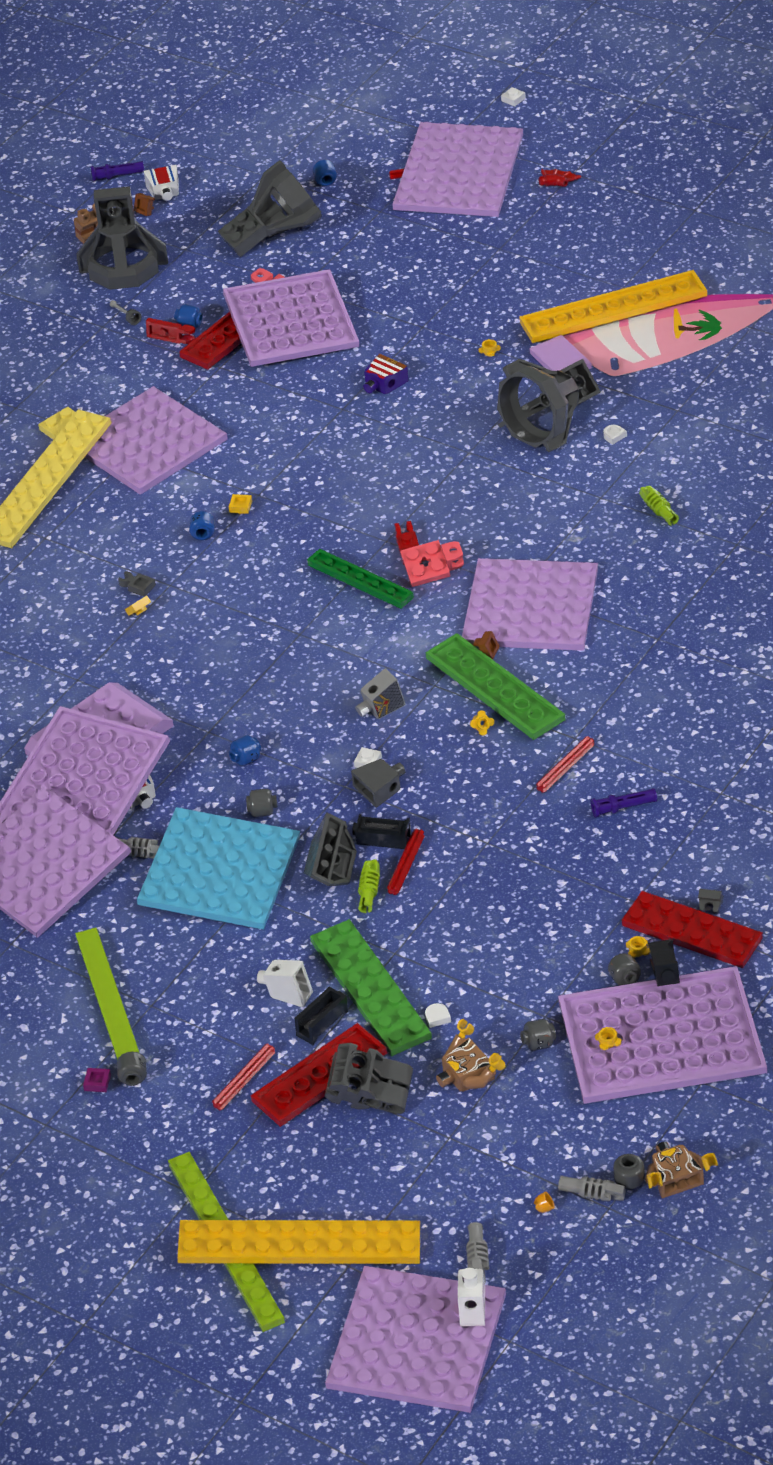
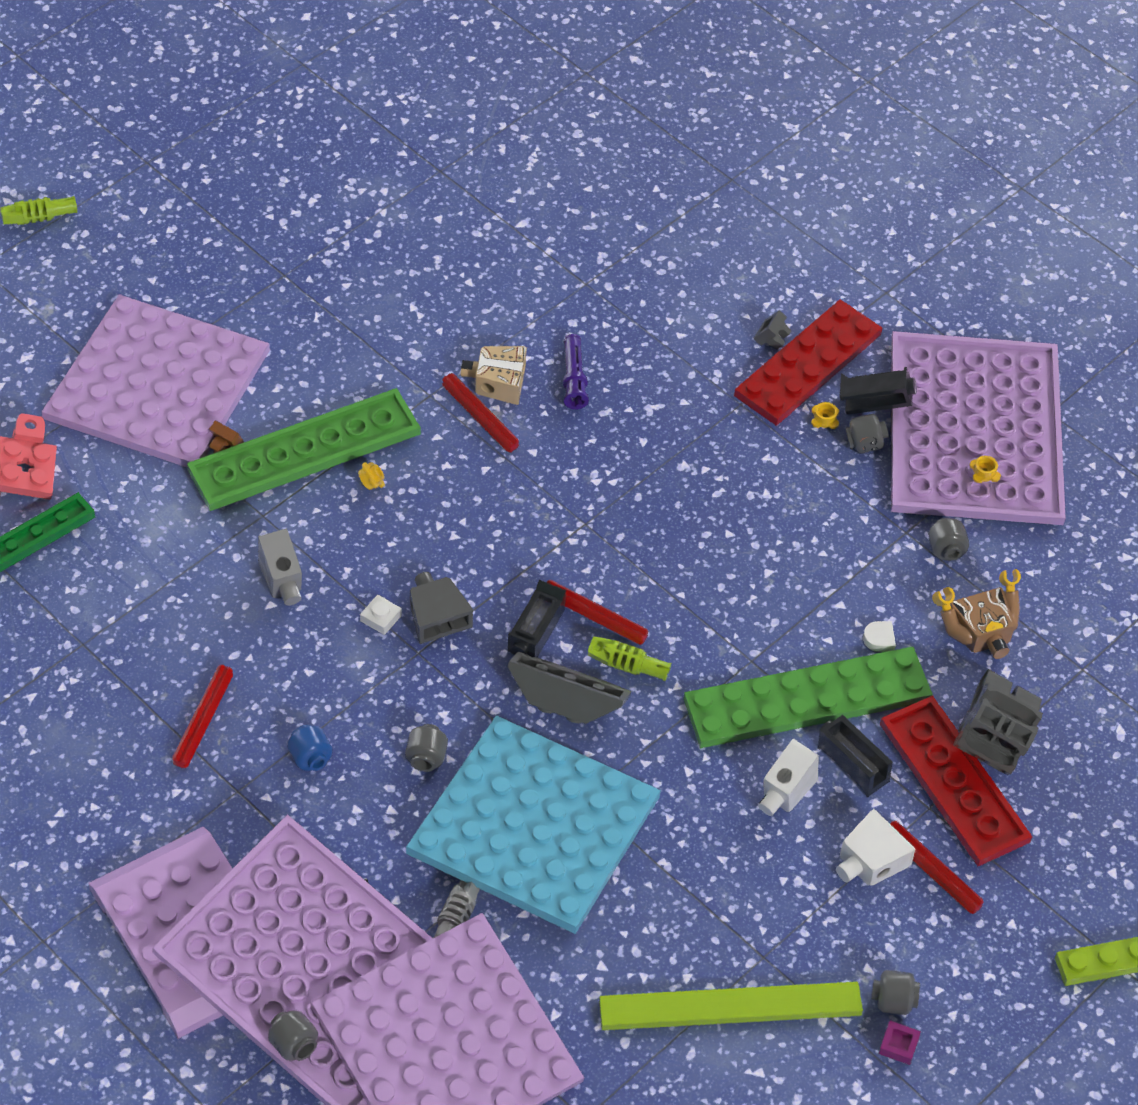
camera: 85 degrees left, 10 degrees up
(18, 783) = (293, 1035): none -> dark grey head
(244, 1038) = (874, 851): none -> white torso
(272, 699) = (202, 716): none -> red axle
(603, 763) = (498, 372): none -> tan torso

